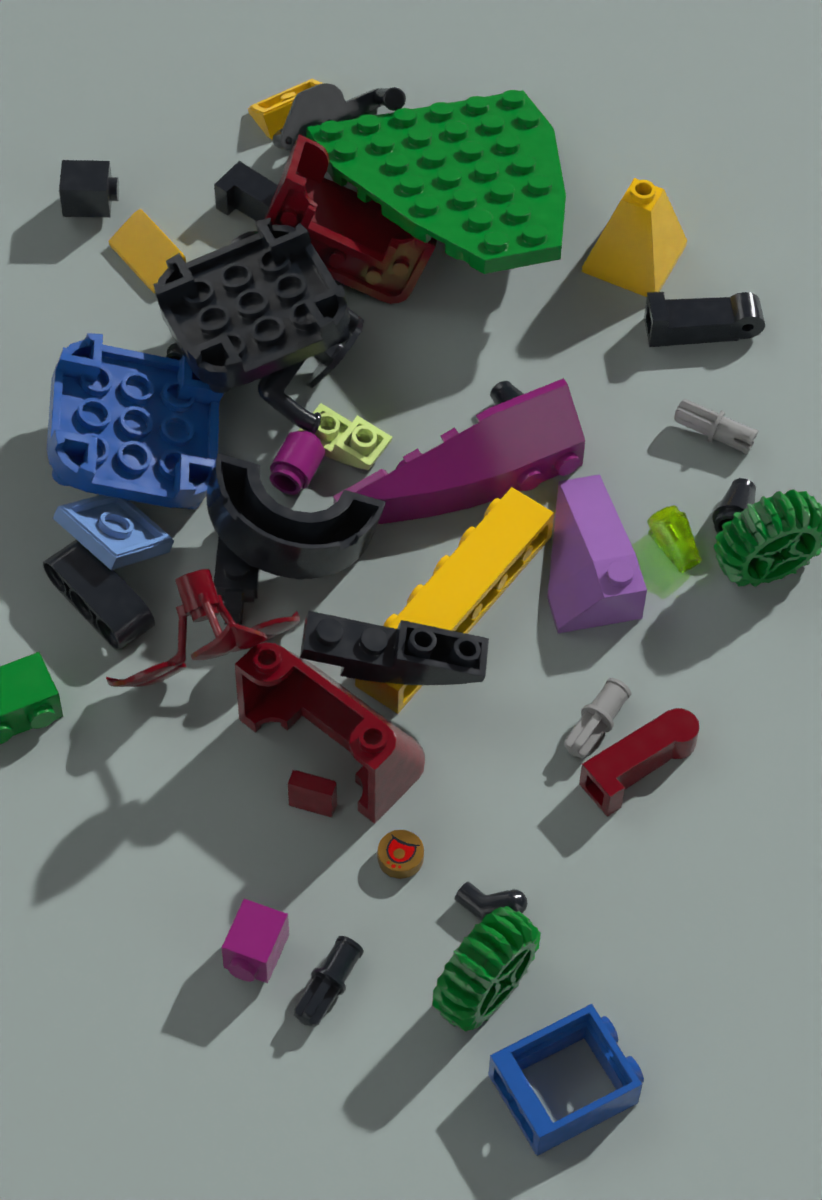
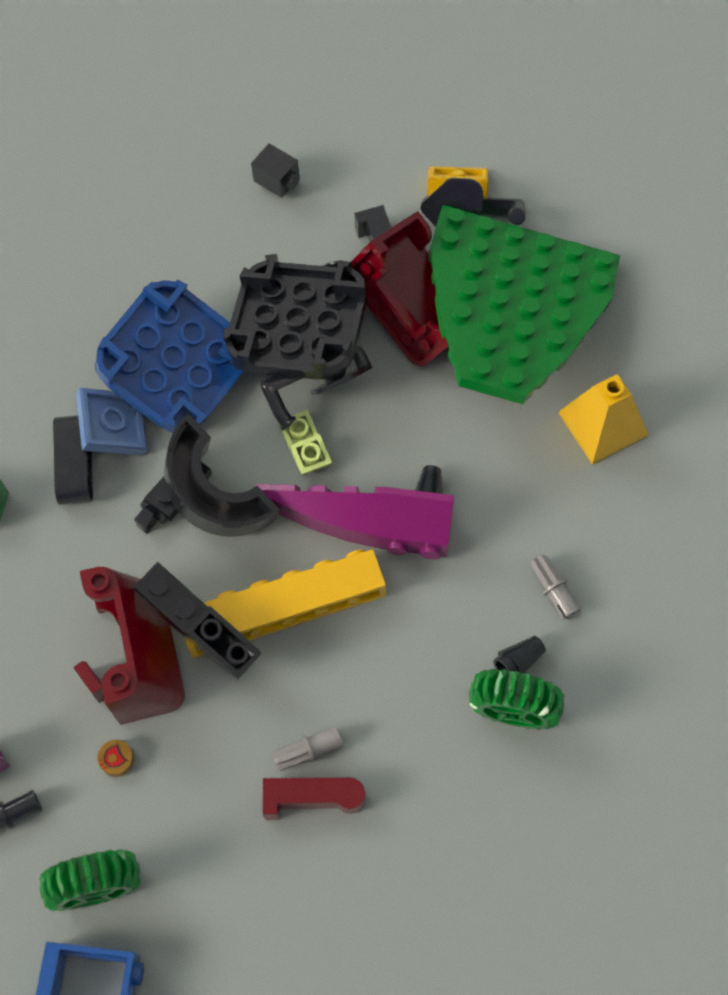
camera: 40 degrees right, 10 degrees up
(144, 247) = (285, 234): yellow slope -> none
(203, 603) = (100, 511): dark red plant -> none
(296, 462) = (259, 442): magenta brick -> none
(481, 904) = (141, 836): black arm -> none
(592, 561) = (392, 633): medium lavender wedge -> none
(674, 537) = (460, 652): clear neon green cone -> none
(702, 319) = (609, 501): black leg -> none

